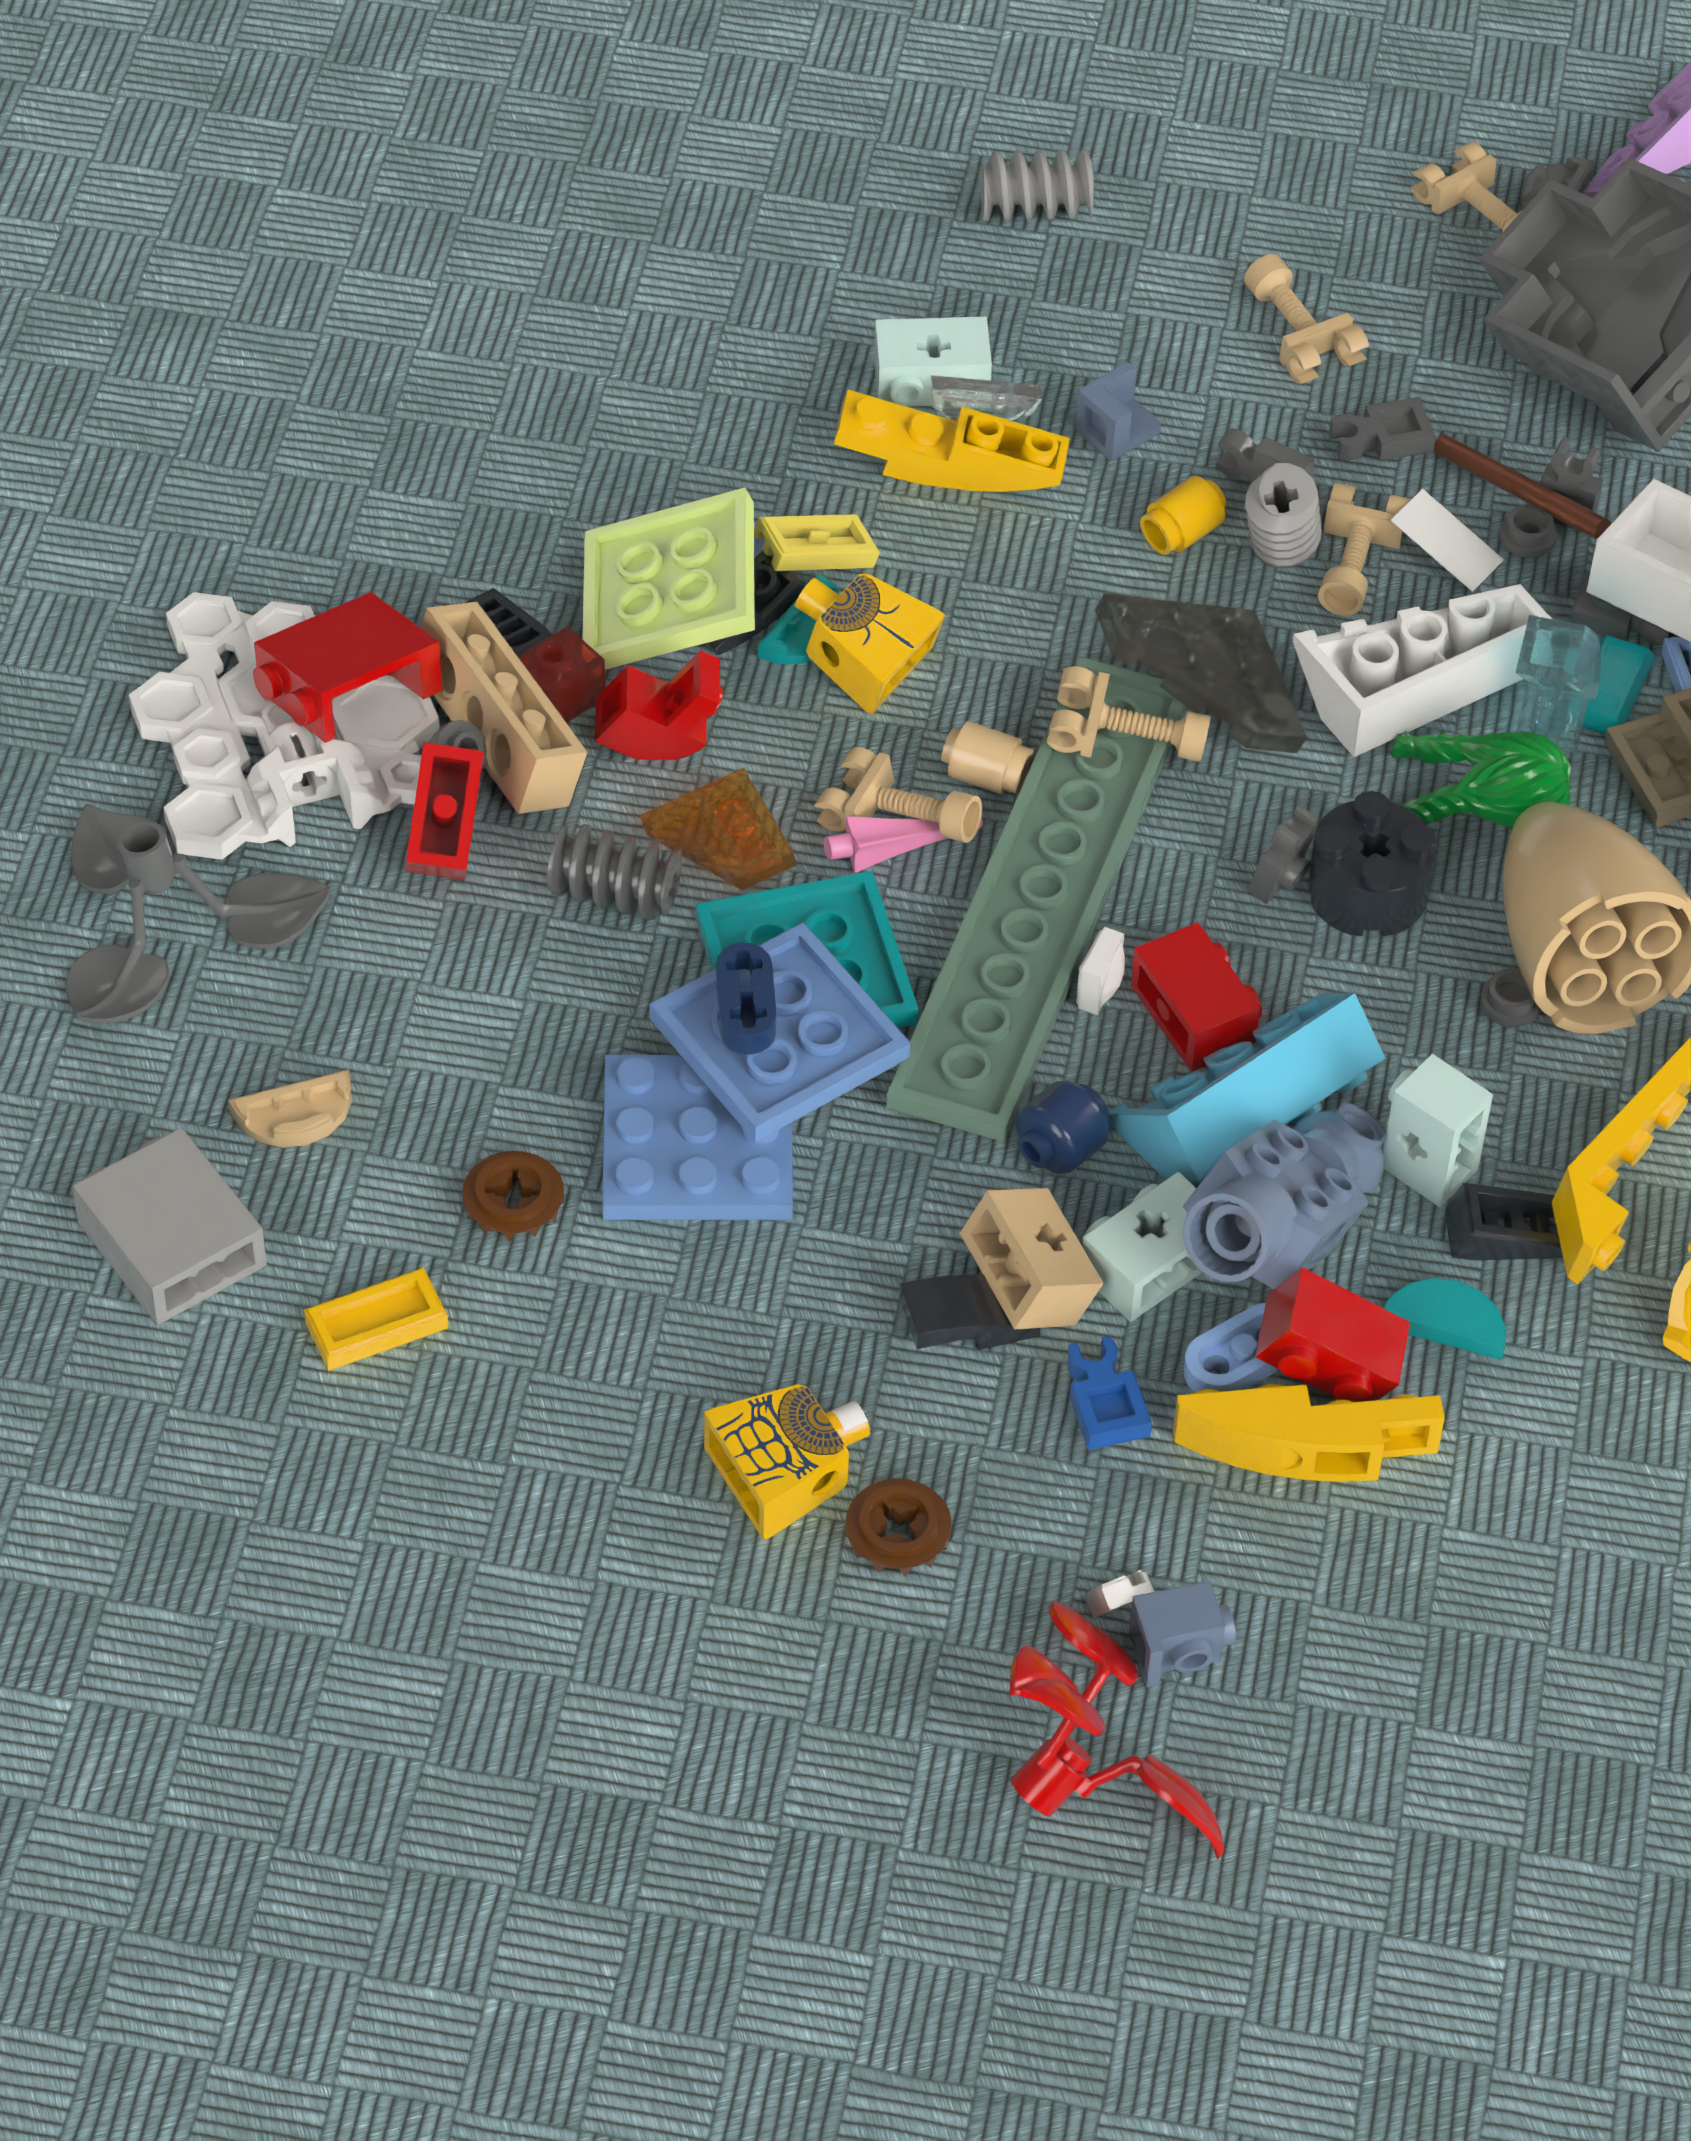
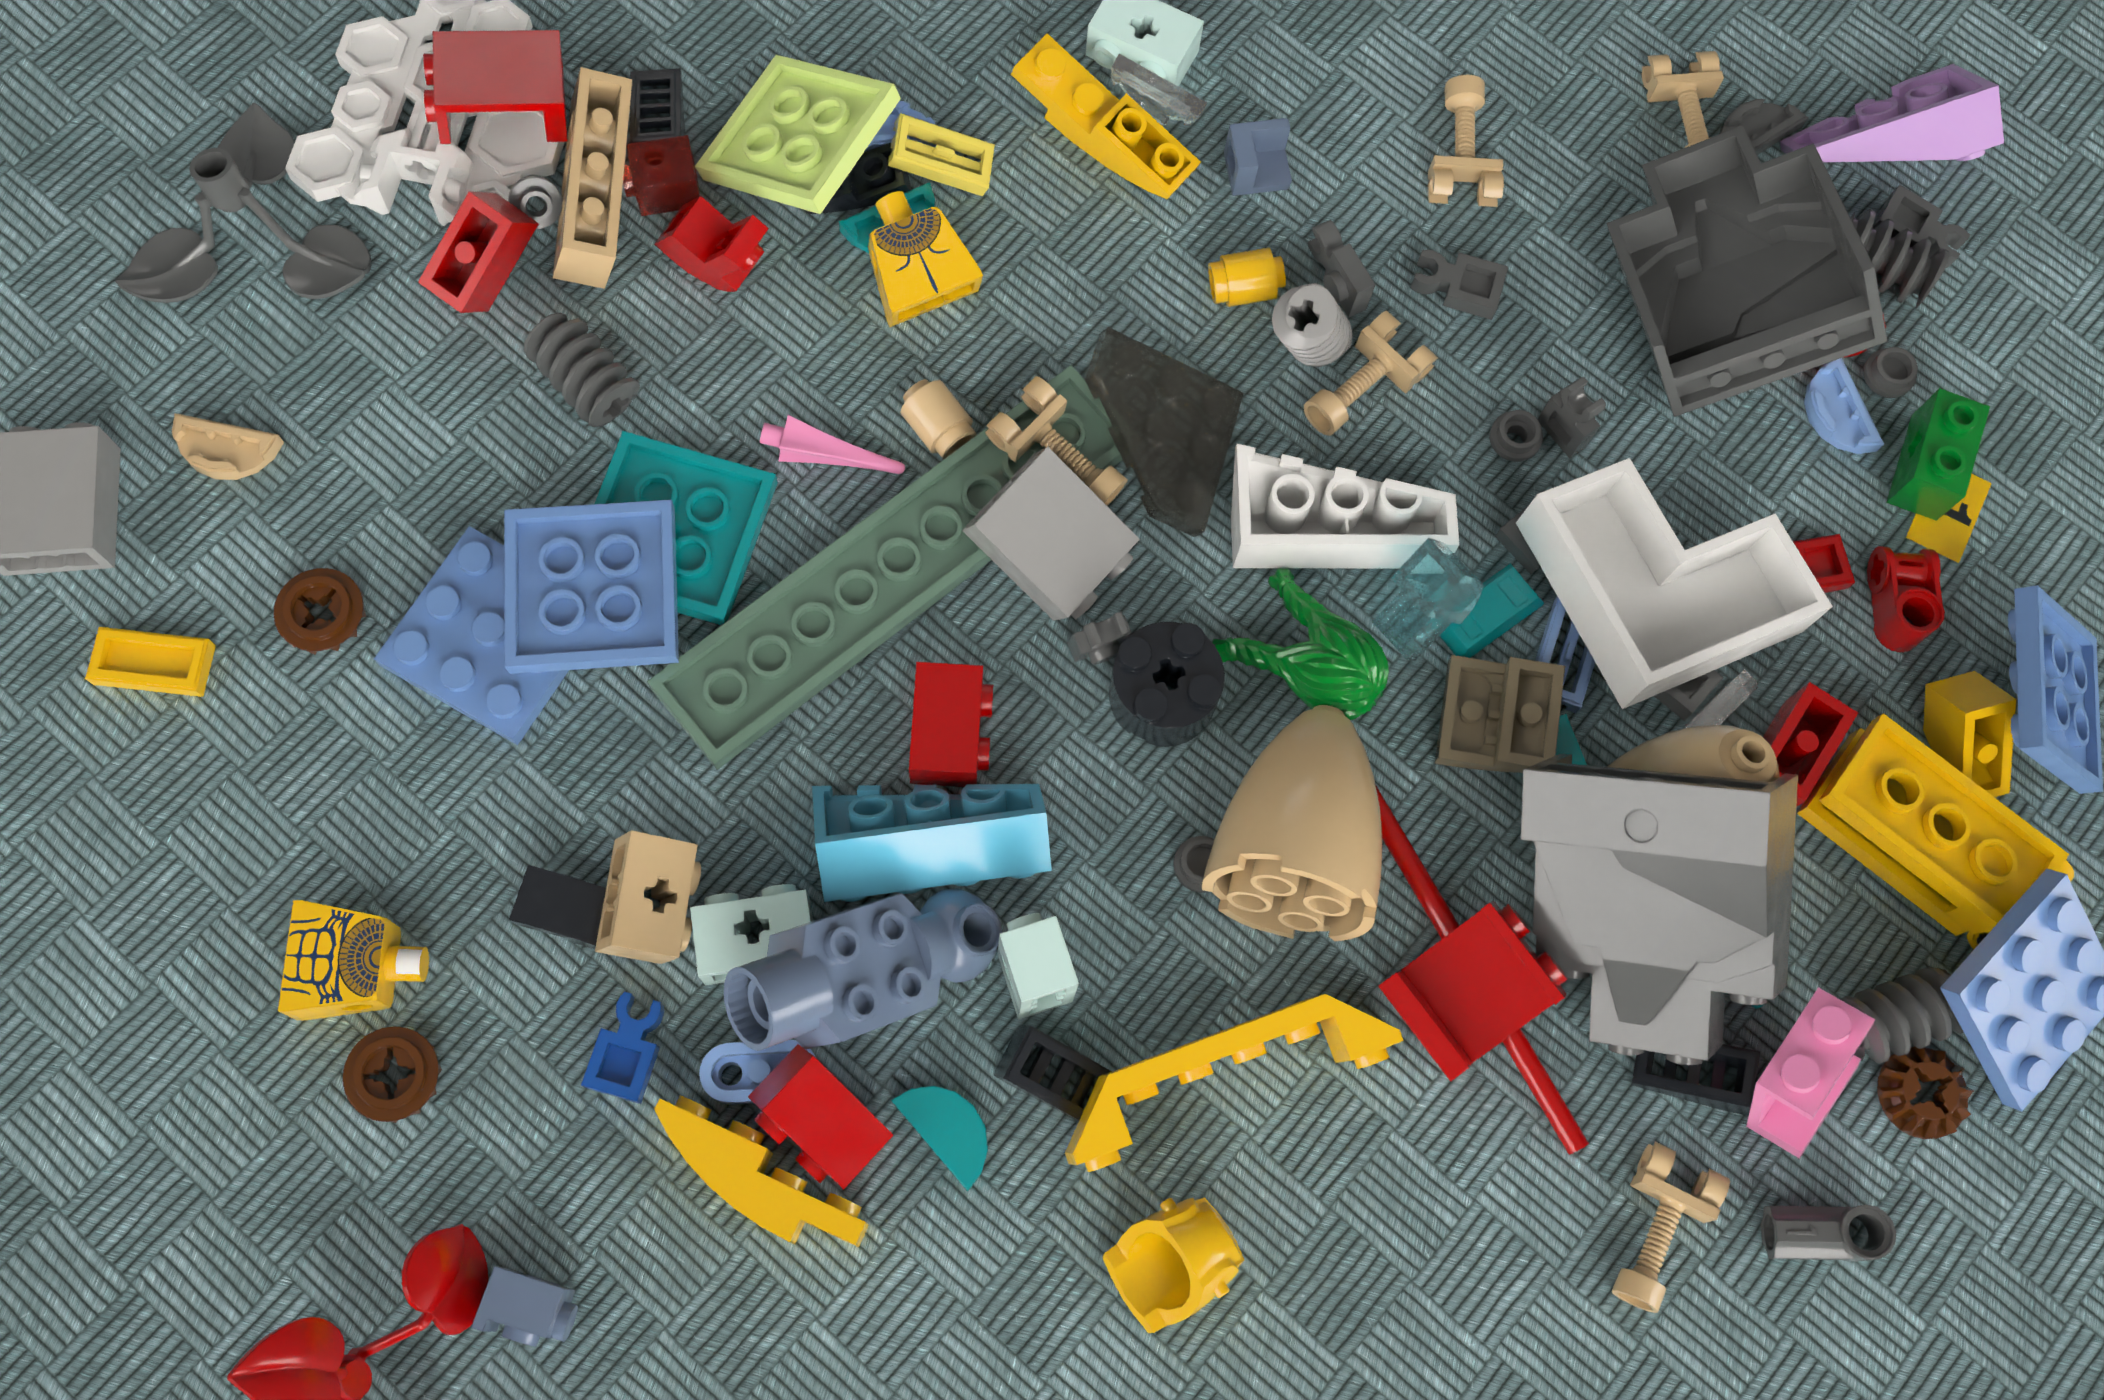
camera: 25 degrees right, 20 degrees up
(724, 831) = (698, 375): clear orange wing -> none
(736, 998) = (560, 541): dark blue beam -> none
(873, 777) = (871, 459): tan bar -> none
(1063, 1125) = (759, 787): dark blue head -> none
(1101, 971) = (890, 660): white tile -> none
(1117, 1593) = (510, 1242): white tile -> none
(1177, 793) = (1052, 536): none -> light grey brick
(1447, 540) = (1442, 409): white sticker -> none
(1521, 486) = (1534, 396): copper bar -> none

